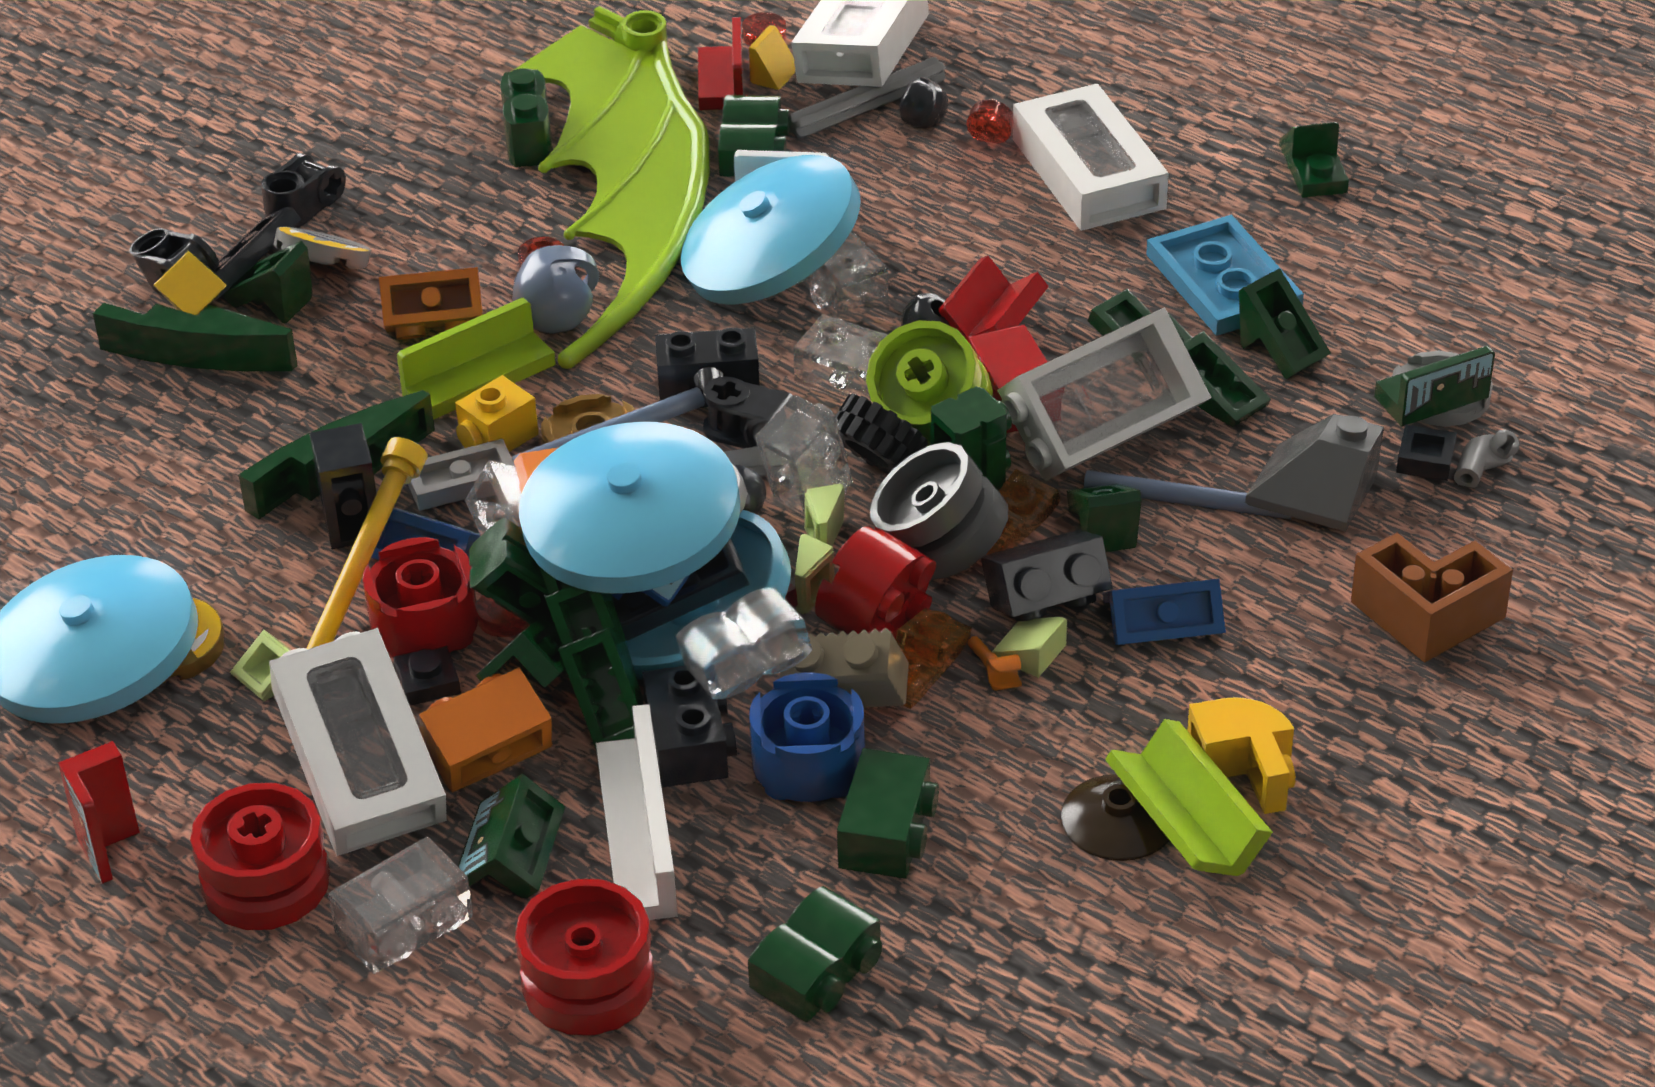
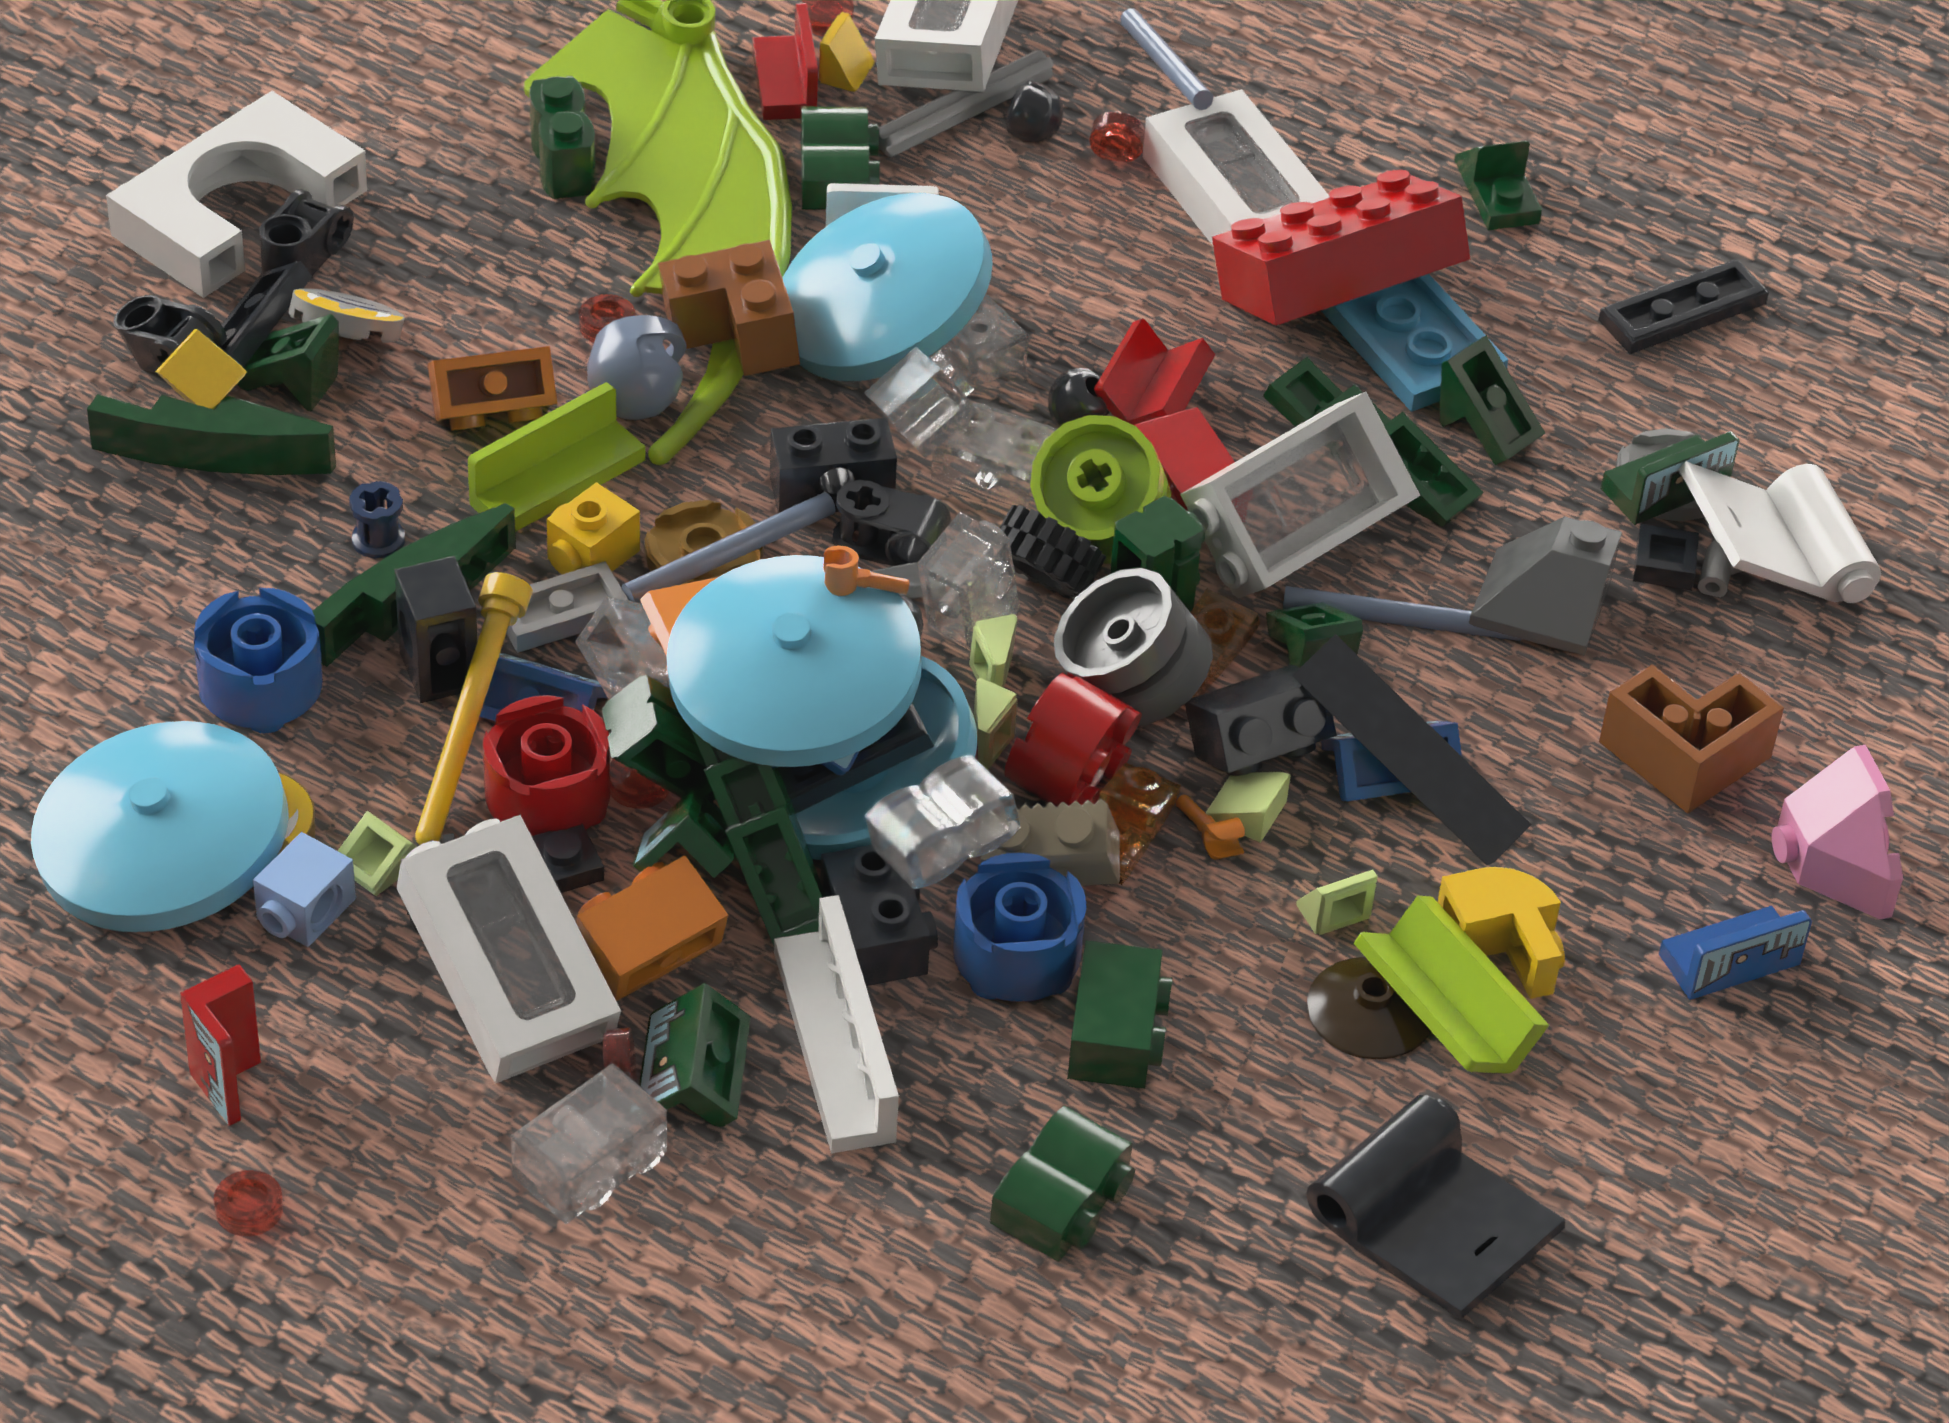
camera: 10 degrees left, 5 degrees up
(103, 947) = (248, 1203): none -> clear red tile
(195, 508) = (258, 659): none -> blue brick
(198, 692) = (304, 890): none -> light blue brick
(260, 856) = (417, 1090): red wheel -> none
(287, 120) = (263, 142): none -> white arch
(317, 399) = (369, 509): none -> dark blue bush
(445, 832) = (620, 1050): none -> clear red tile
(585, 956) = (810, 1197): red wheel -> none
(640, 236) = (734, 297): none -> dark orange brick
(676, 437) = (844, 576): none -> orange hand
(787, 314) = (923, 400): none -> clear brick
(1039, 63) = (1166, 59): none -> bar
(1099, 726) = (1339, 903): none -> yellowish green slope
(1148, 988) = (1430, 1209): none -> black door
(1165, 201) = (1340, 247): none -> red brick
(1176, 601) = (1412, 750): none -> black sticker
(1456, 777) = (1736, 950): none -> blue panel
(1465, 256) = (1683, 306): none -> black tile
(1540, 435) = (1788, 532): none -> white door
(1556, 681) = (1838, 835): none -> bright pink slope

